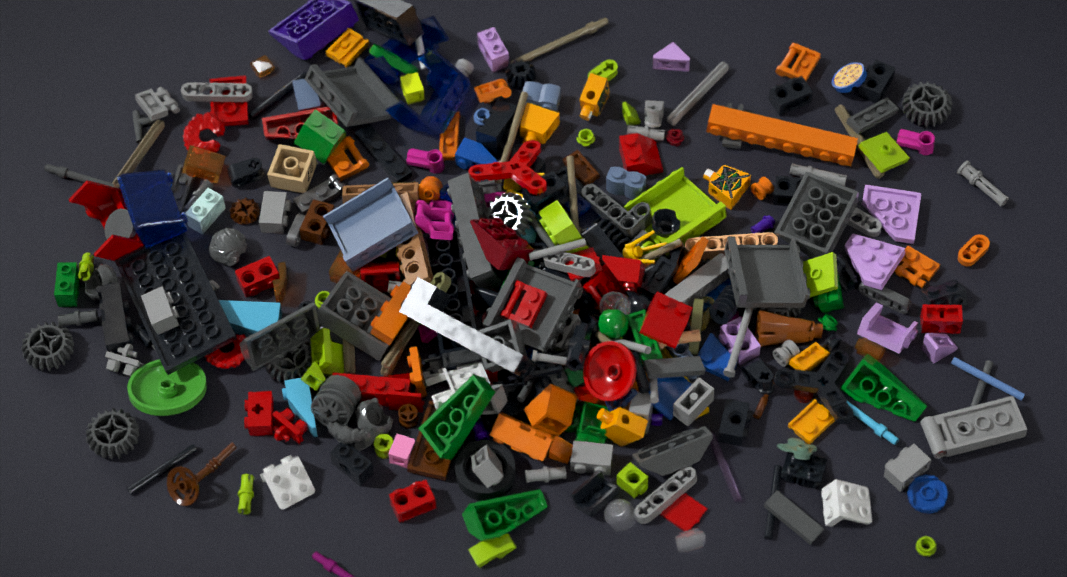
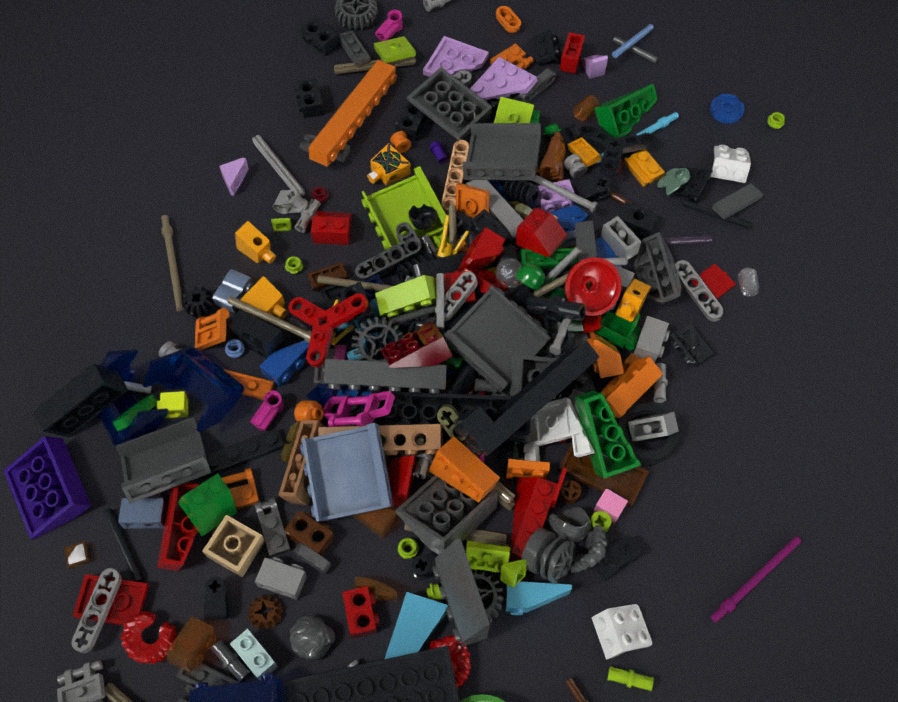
camera: 80 degrees left, 5 degrees up
(261, 423) = (546, 640): red brick -> none
(285, 429) = (564, 609): red hips -> none
(347, 47) = (92, 458): light orange plate -> none
(415, 505) = (674, 508): red brick -> none
(490, 549) = (732, 446): lime slope -> none
(493, 49) = (158, 319): lavender brick -> none
(500, 515) = (702, 434): green wedge -> none
(529, 306) = (496, 342): red plate -> none
(601, 70) = (222, 235): lime beam -> none
(620, 514) = (712, 331): clear hair -> none
(625, 183) = (360, 242): sand blue brick -> none
(630, 473) = (678, 318): lime brick -> none
(798, 170) = (395, 105): light grey pin -> none
(804, 64) = (280, 81): orange plate -> none
(849, 77) = (310, 51): tile -> none
(885, 331) = (575, 91): lavender panel -> none
(906, 467) = (704, 112): light grey brick -> none
(982, 427) = (677, 60): light grey hinge -> none

